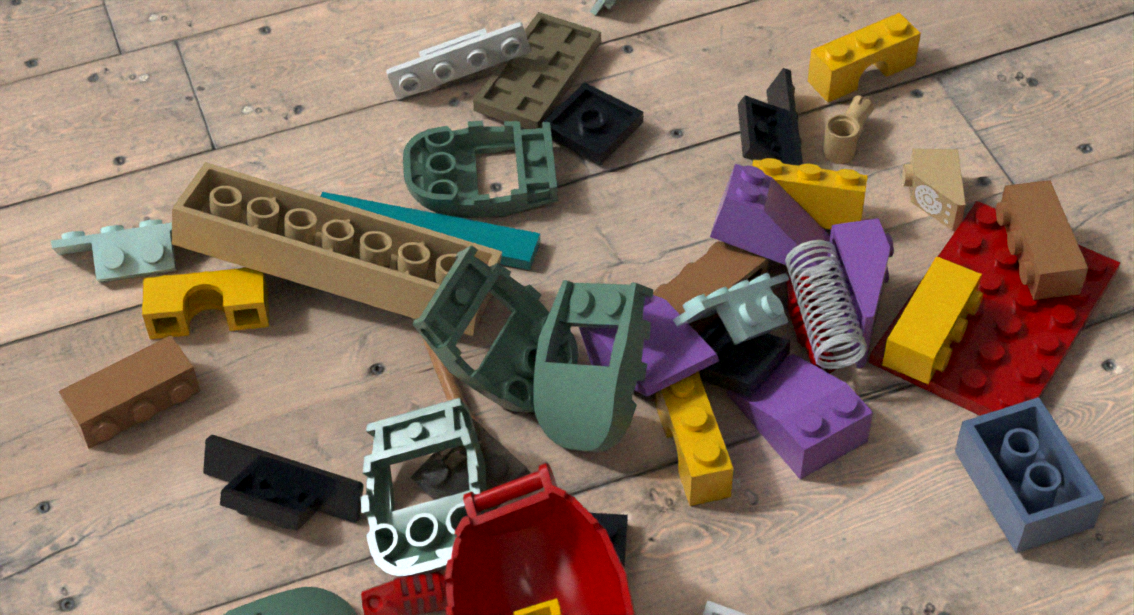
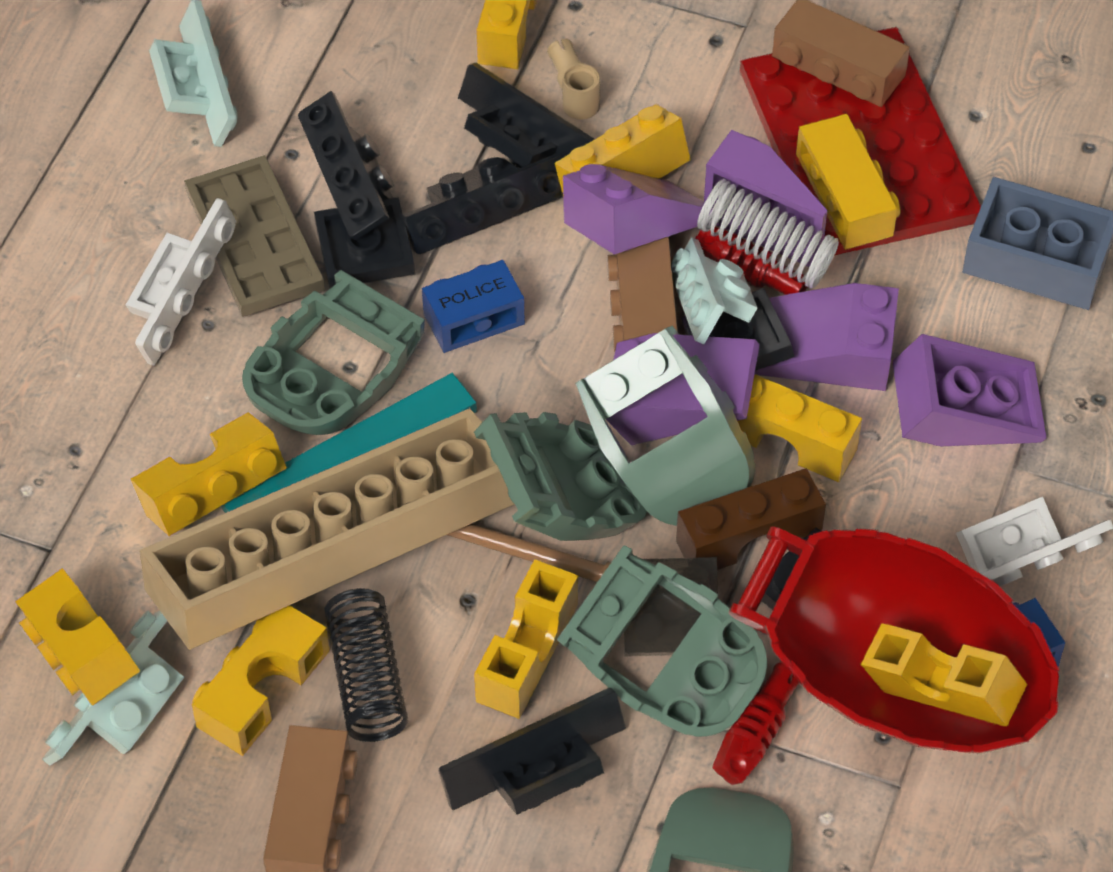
camera: 50 degrees left, 5 degrees up
(128, 199) = (75, 638): none -> yellow arch
(223, 369) = (361, 623): none -> black piece
(334, 424) = (517, 661): none -> yellow arch
(353, 177) = (183, 493): none -> yellow arch
(602, 206) = (473, 305): none -> blue brick
(613, 477) = (731, 521): none -> reddish brown arch
(639, 73) = (347, 165): none -> black bracket
(685, 150) = (481, 199): none -> black bracket
(843, 528) = (966, 395): none -> medium lavender slope
(936, 184) = (701, 71): tan slope -> none

